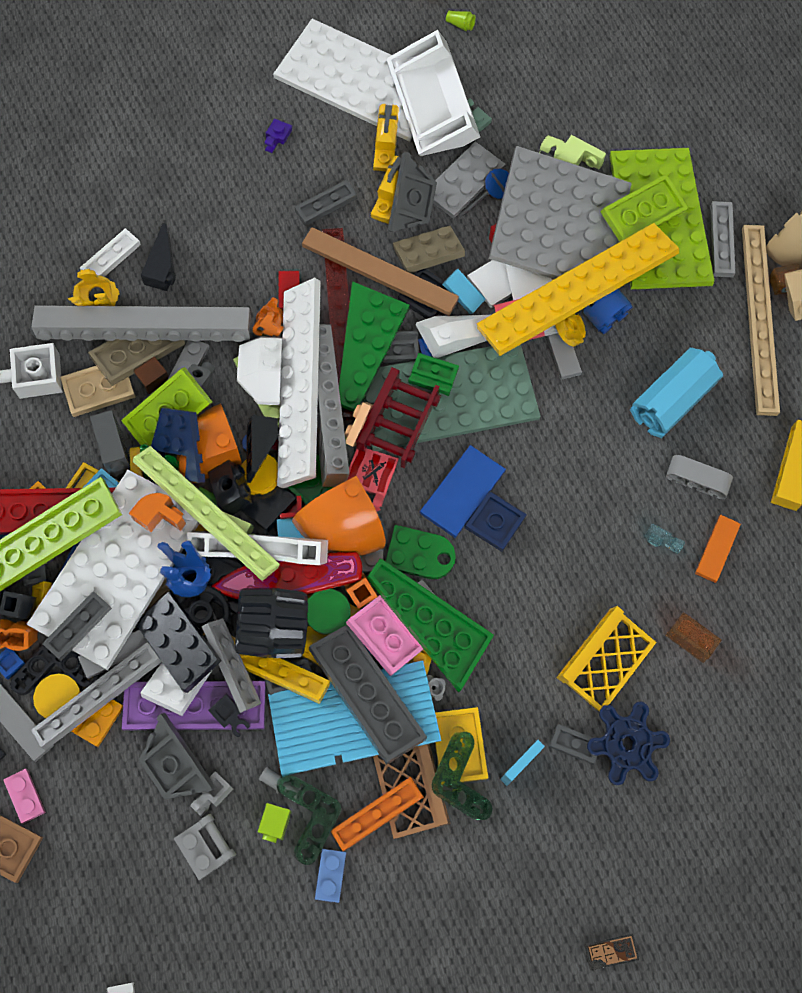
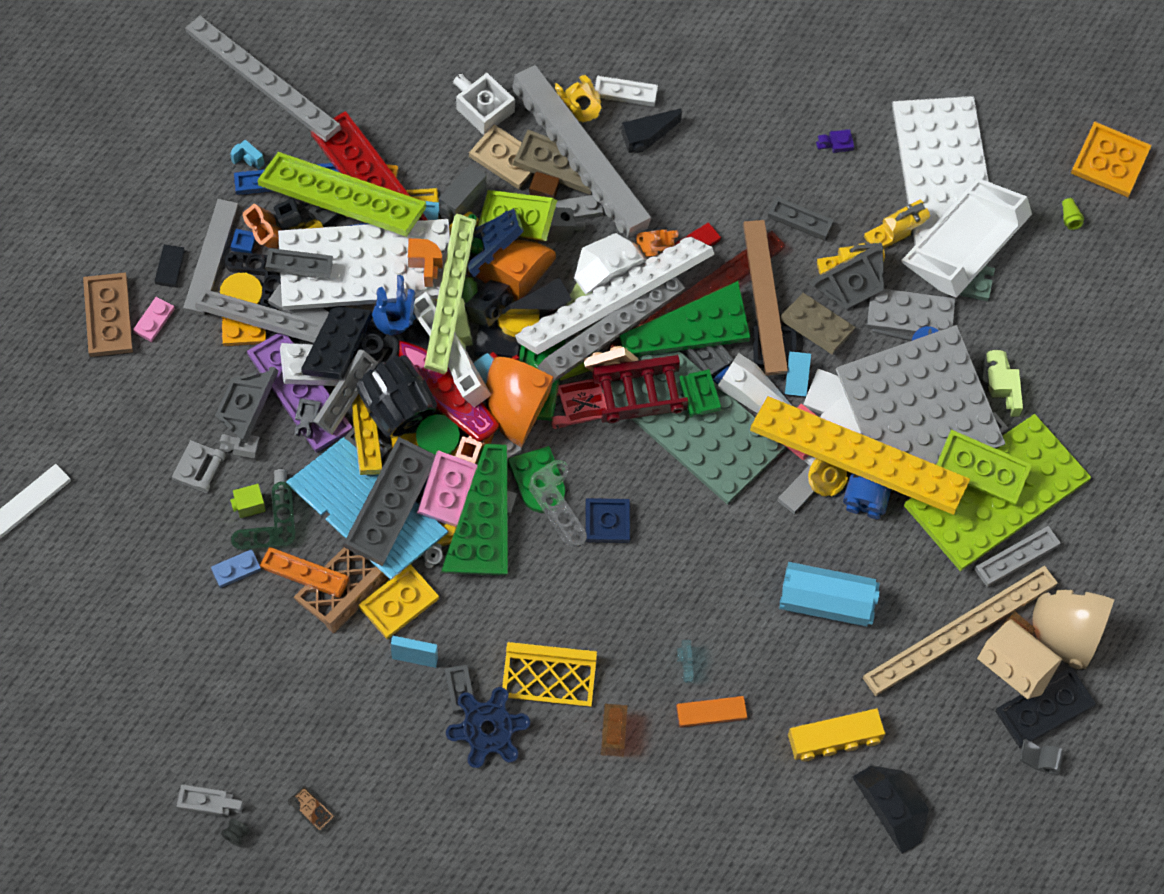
camera: 55 degrees right, 5 degrees down
(452, 779) = (367, 605): clear green beam -> none
(462, 491) = (617, 480): blue tile -> none
(462, 550) = (562, 508): none -> clear beam
(699, 475) = (766, 658): light grey beam -> none

